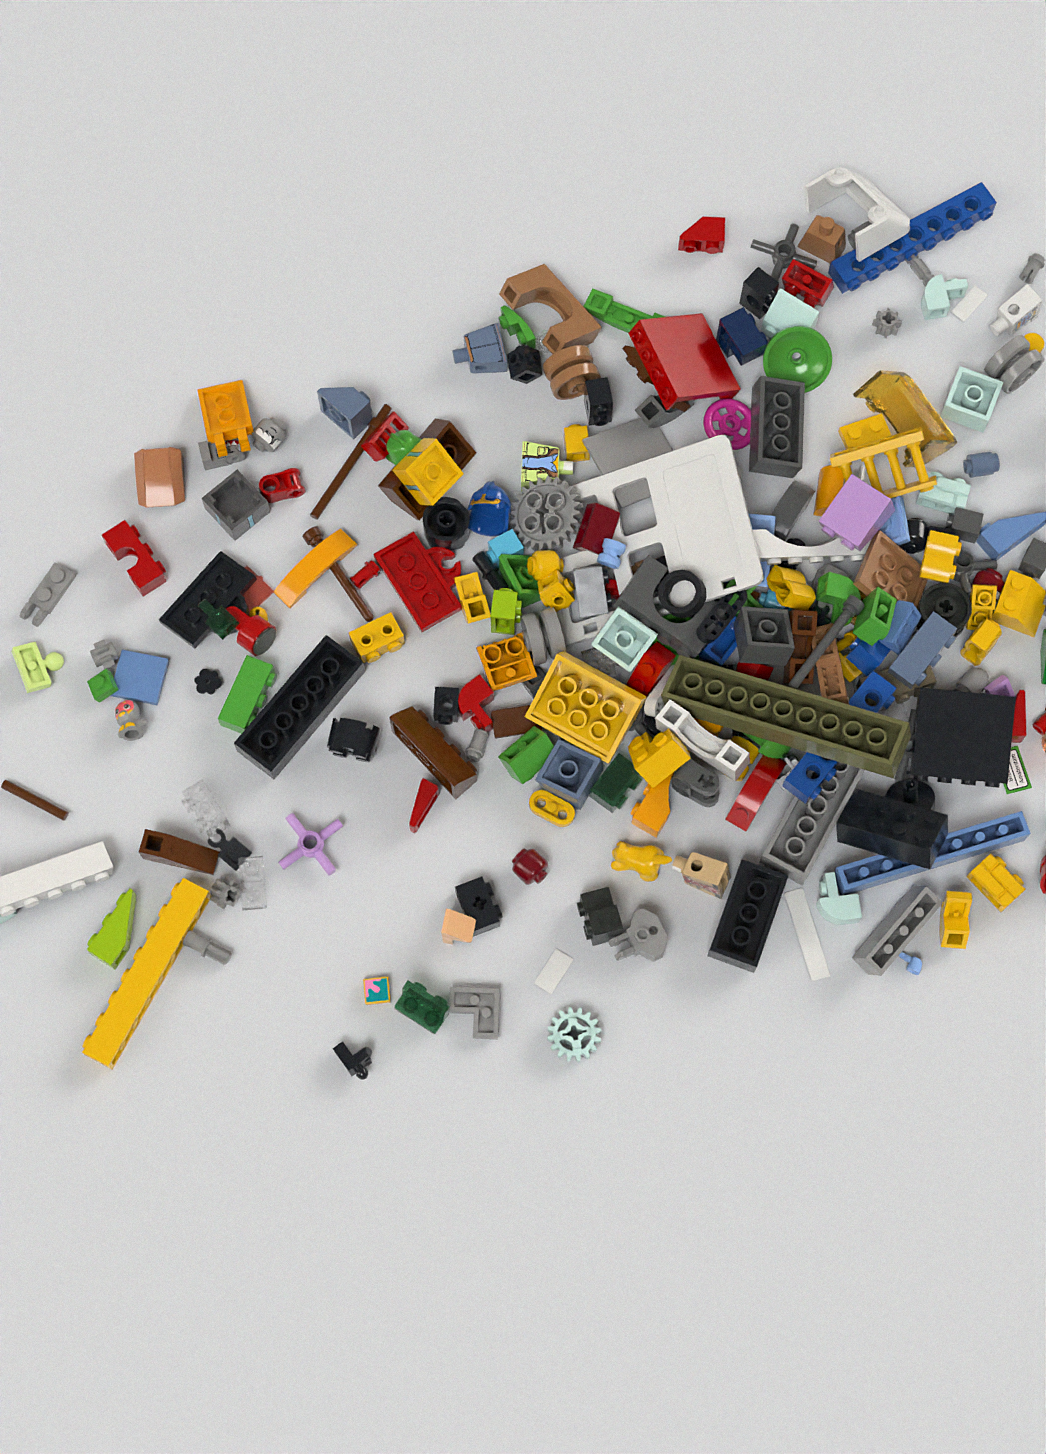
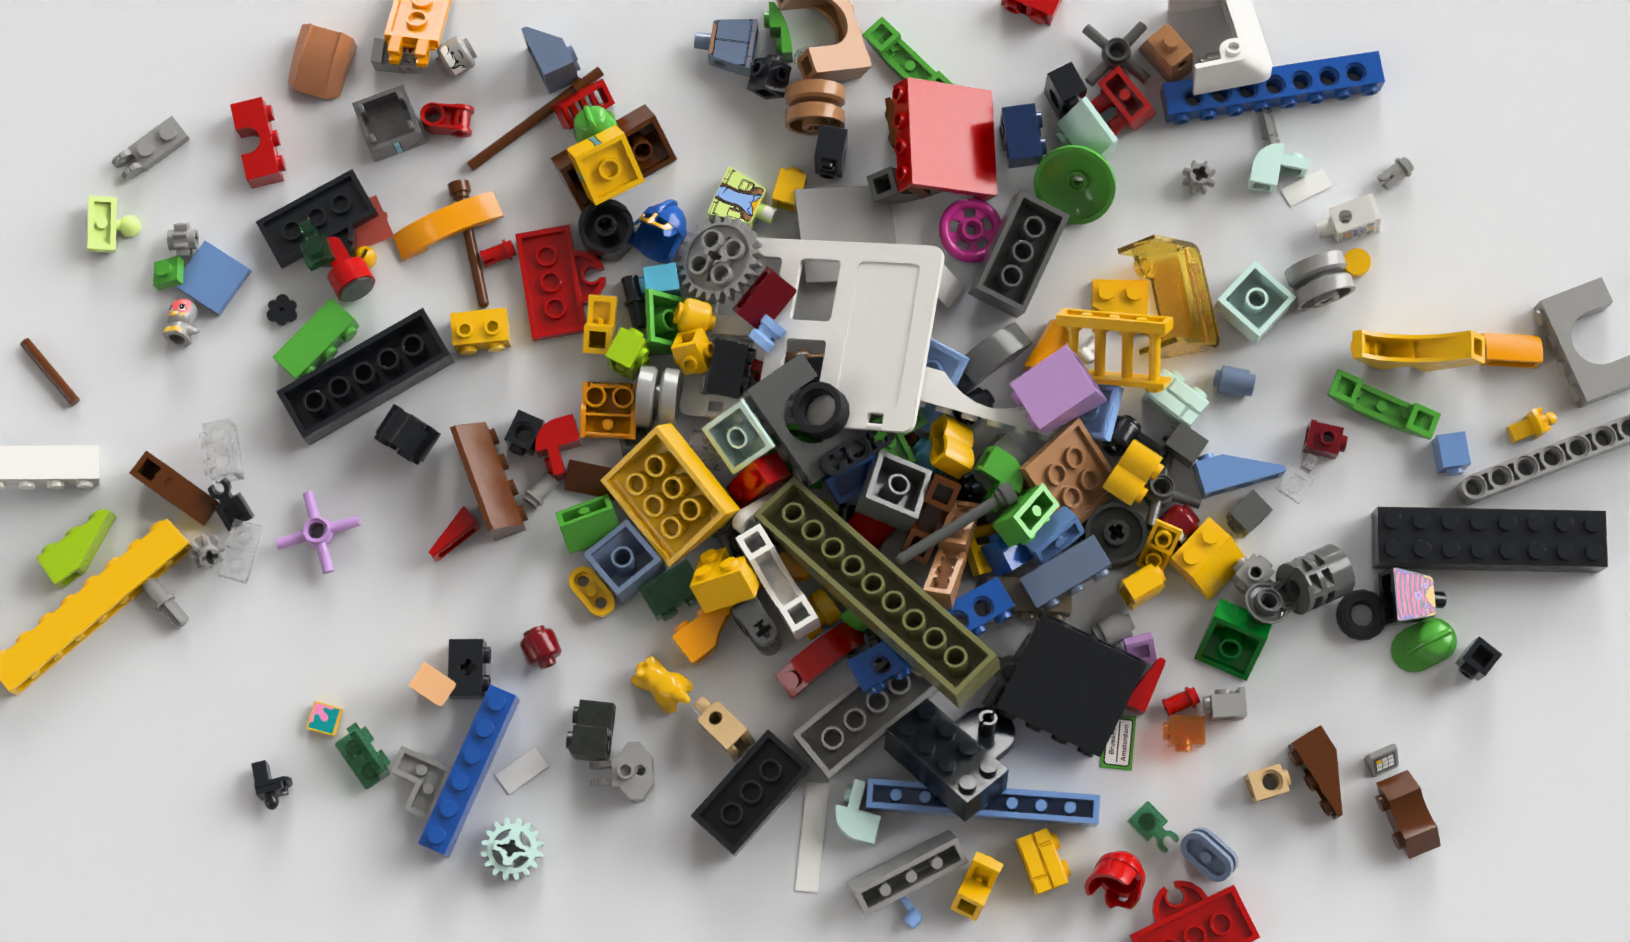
camera: 25 degrees right, 5 degrees up
(513, 986) = (469, 771): none -> blue brick

